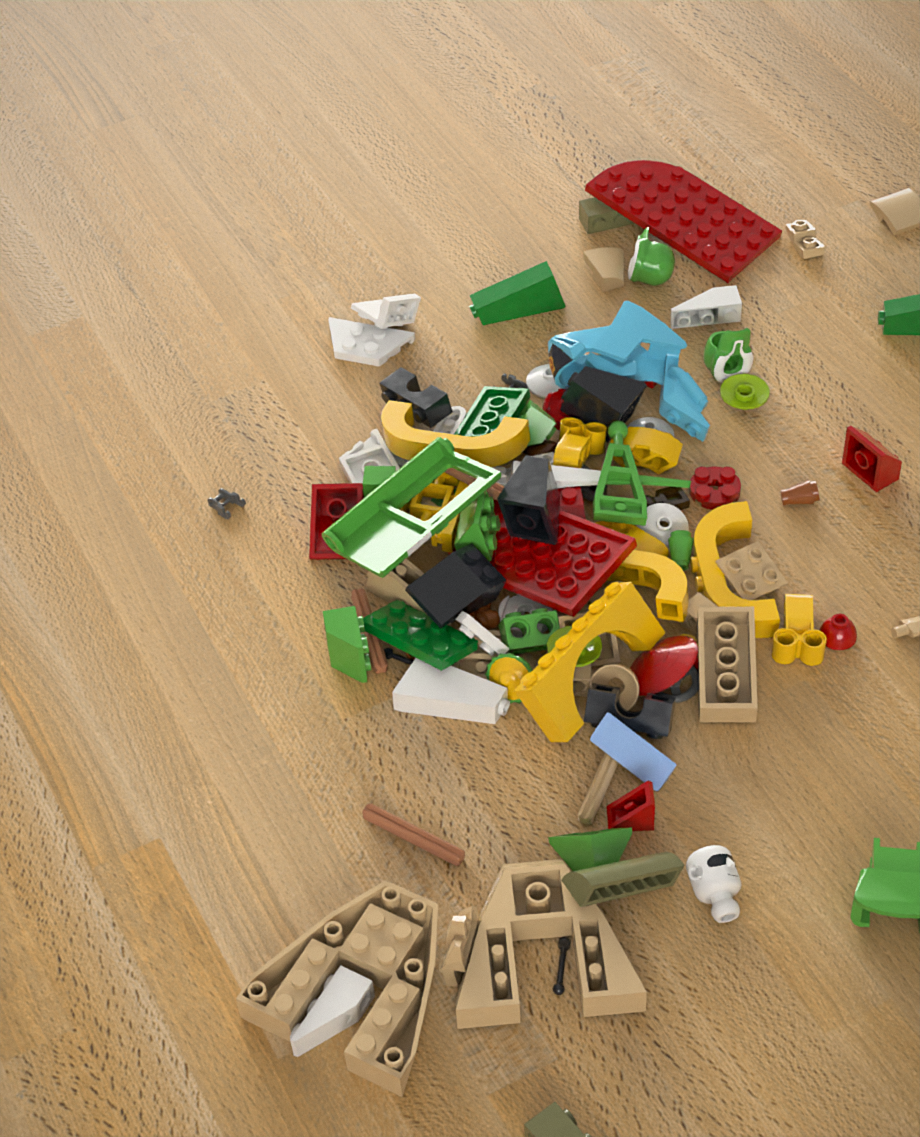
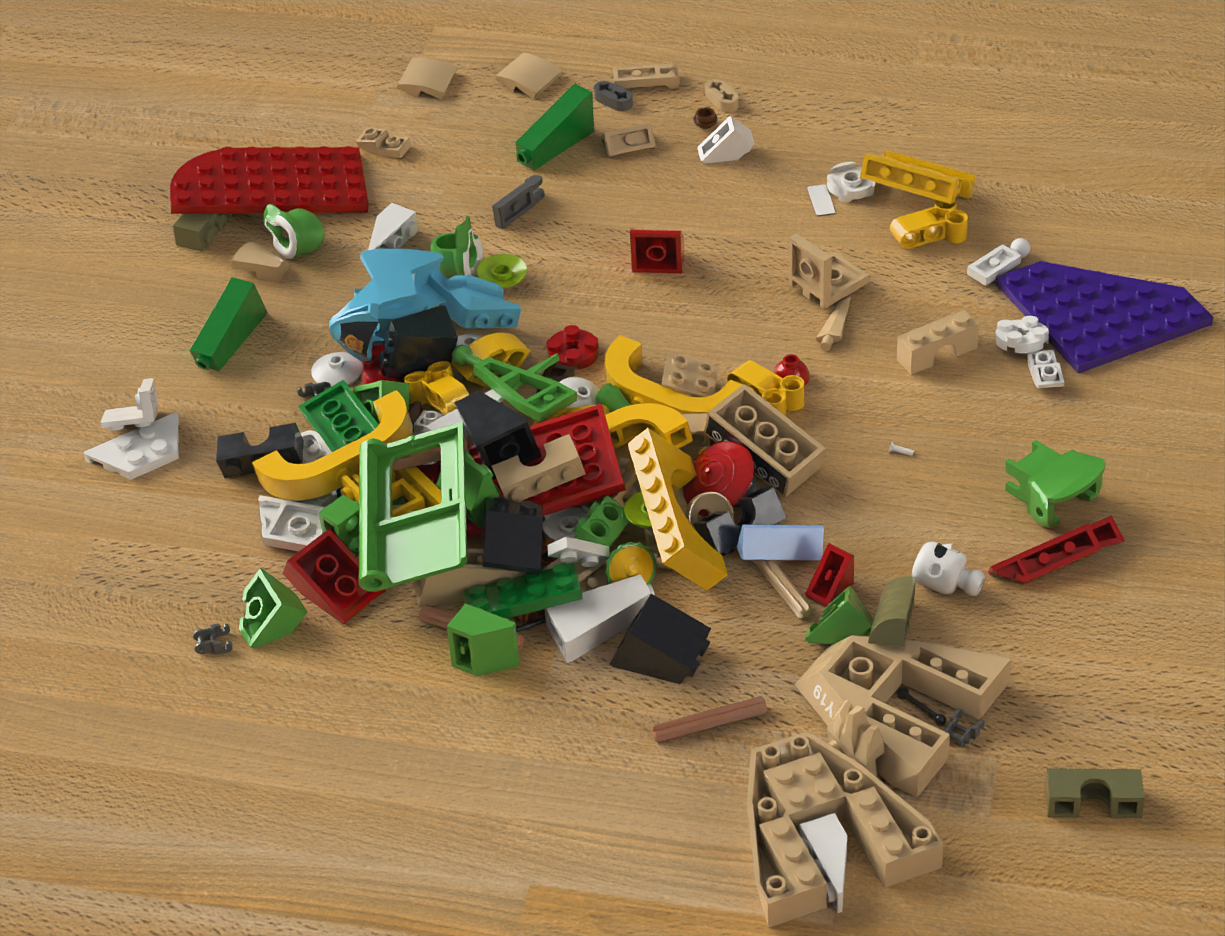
camera: 50 degrees left, 5 degrees down
(276, 512) = (270, 610): none -> bright green slope
(455, 749) = (662, 642): none -> black slope
(548, 560) = (558, 467): none -> tan arch
(566, 1022) = (973, 732): none -> dark grey piece
(801, 494) = (640, 307): dark orange cone -> none
(830, 949) = (1059, 552): none -> red wedge
(831, 348) = (518, 201): none -> dark grey hinge
(831, 753) = (899, 449): none -> white piece

